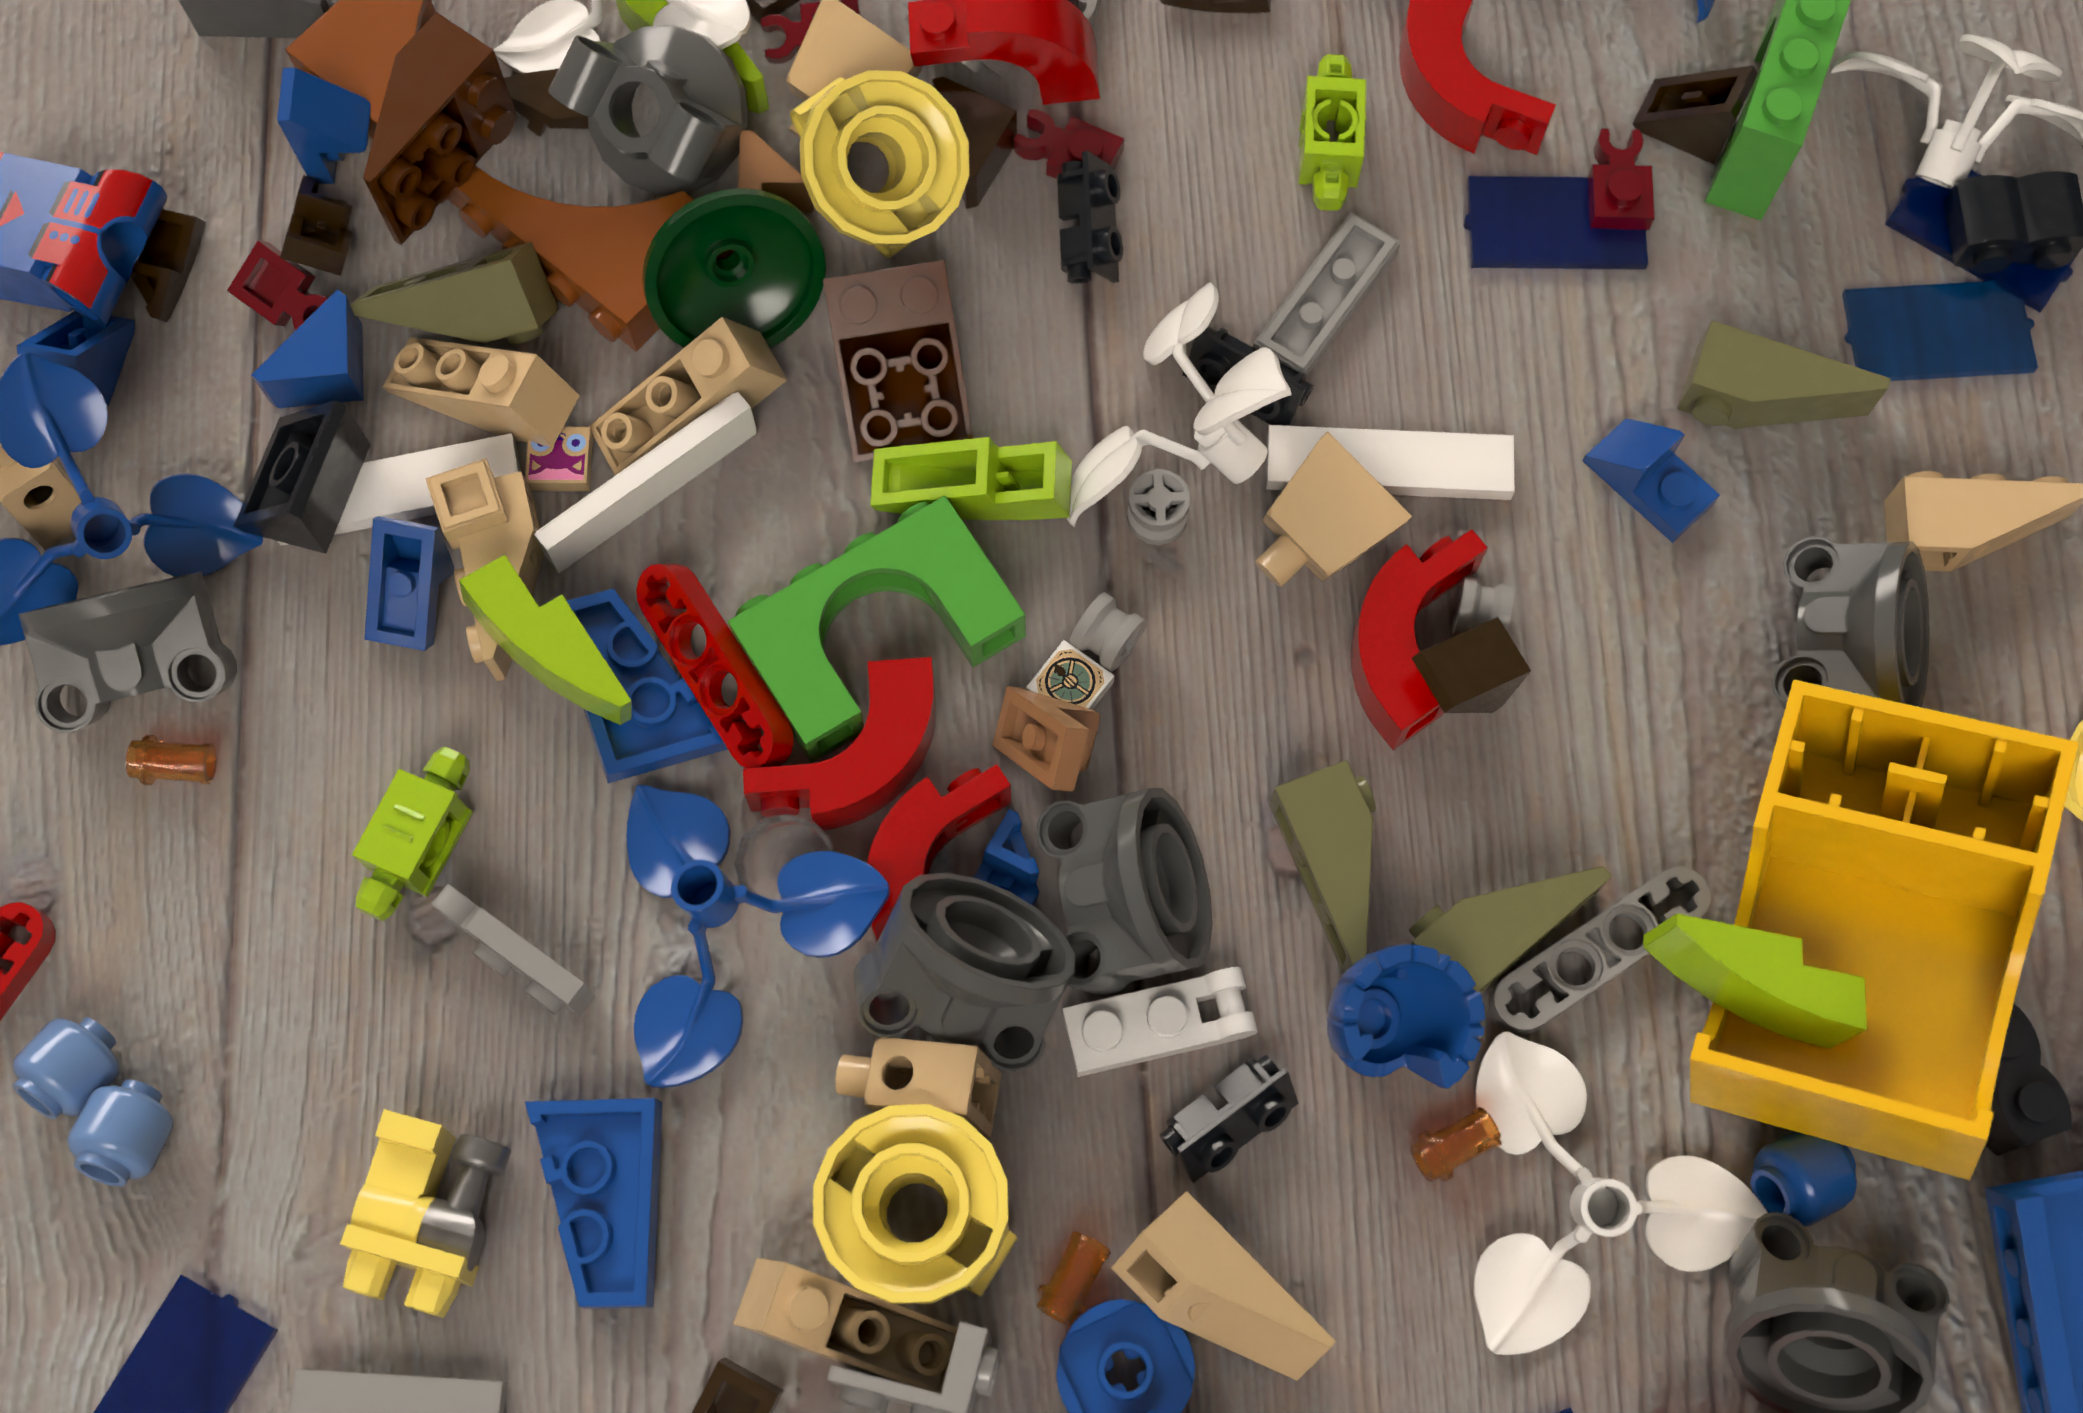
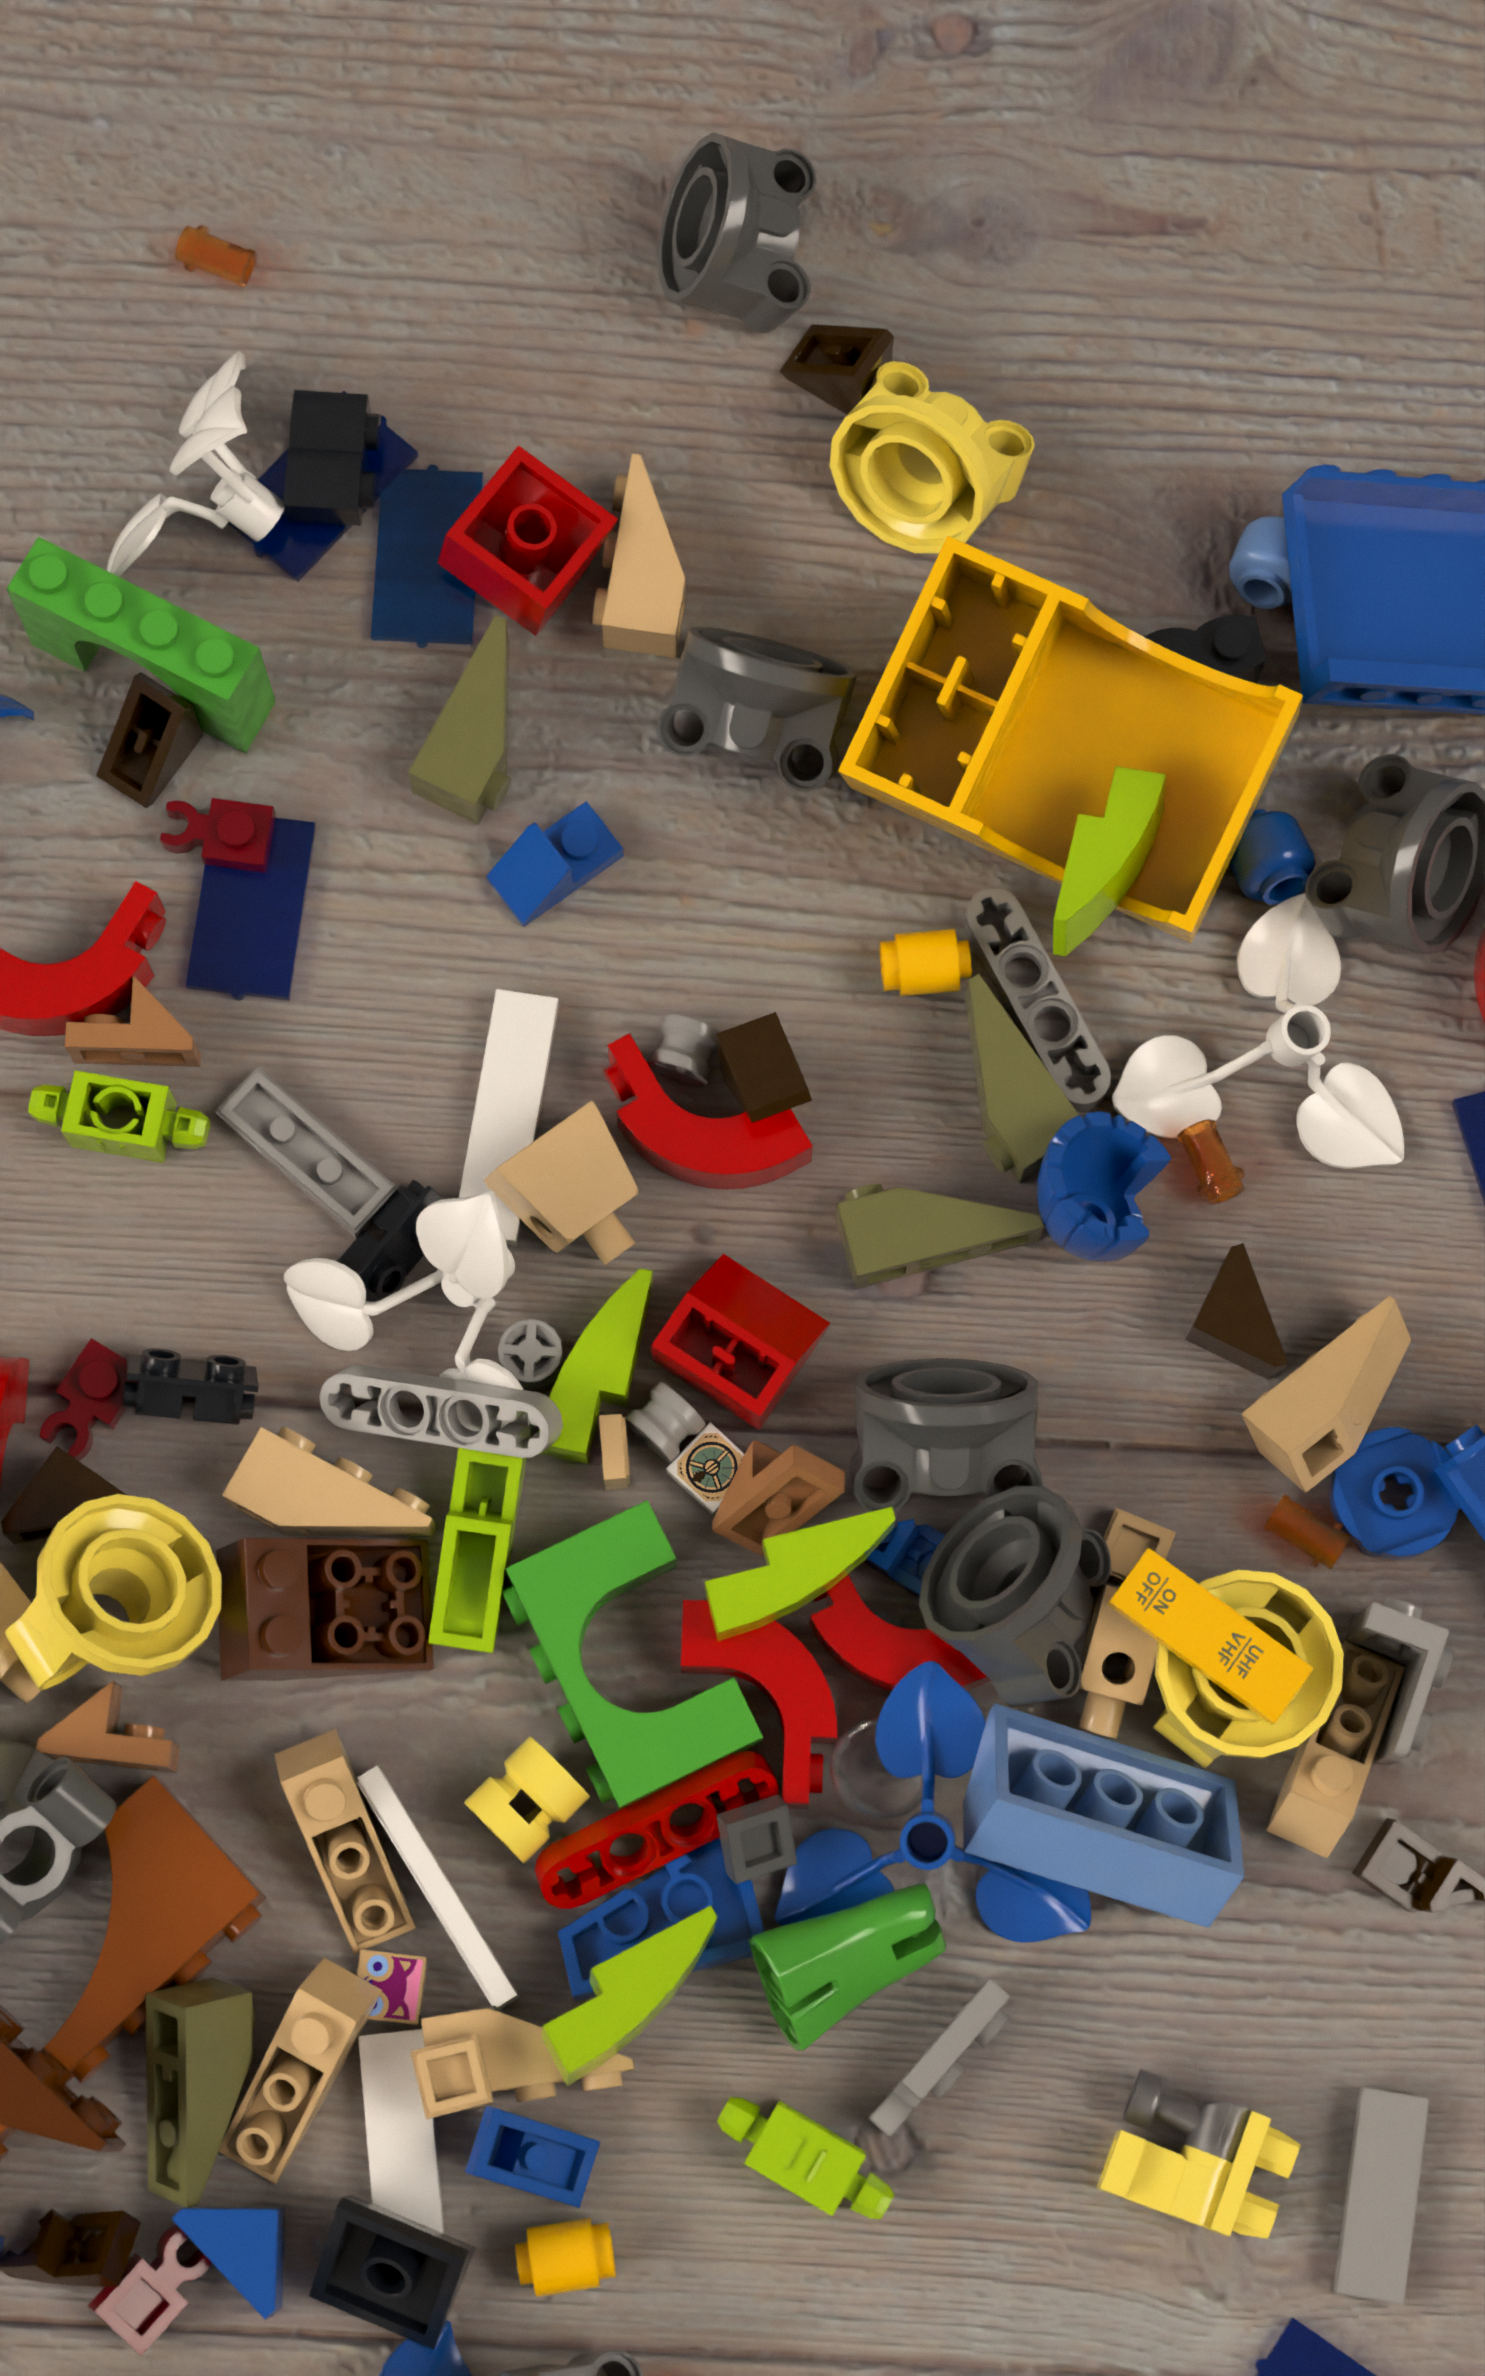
camera: 85 degrees left, 5 degrees up
(317, 630) = (566, 2256): none -> yellow brick
(595, 840) = (837, 1961): none -> bright green piece
(606, 1193) = (1189, 1977): blue wing -> none
(706, 749) = (756, 1839): none -> dark grey plate
(724, 540) = (544, 1783): none -> light yellow wheel
(752, 1081) = (1103, 1817): none -> medium blue slope
(764, 284) = (221, 1768): dark green dish -> none
(930, 1153) = (1210, 1636): none -> yellow tile
(963, 746) = (797, 1571): none -> lime slope
(1003, 320) = (307, 1496): none -> tan slope
(1035, 1102) = (1128, 1540): none -> tan tile
(1071, 588) = (614, 1452): none -> tan tile
(1076, 425) = (440, 1417): none -> light grey beam
(1153, 564) = (600, 1367): none -> lime slope
(1157, 1022) = (1069, 1422): white plate -> none
(1198, 687) = (738, 1340): none -> red slope
(1256, 1102) = (1156, 1343): black hinge -> none
(1292, 1179) = (1237, 1320): none -> dark brown slope
(1413, 141) = (149, 1039): none -> medium nougat slope
(1616, 829) = (924, 962): none -> yellow brick
(1976, 398) = (526, 540): none -> red slope

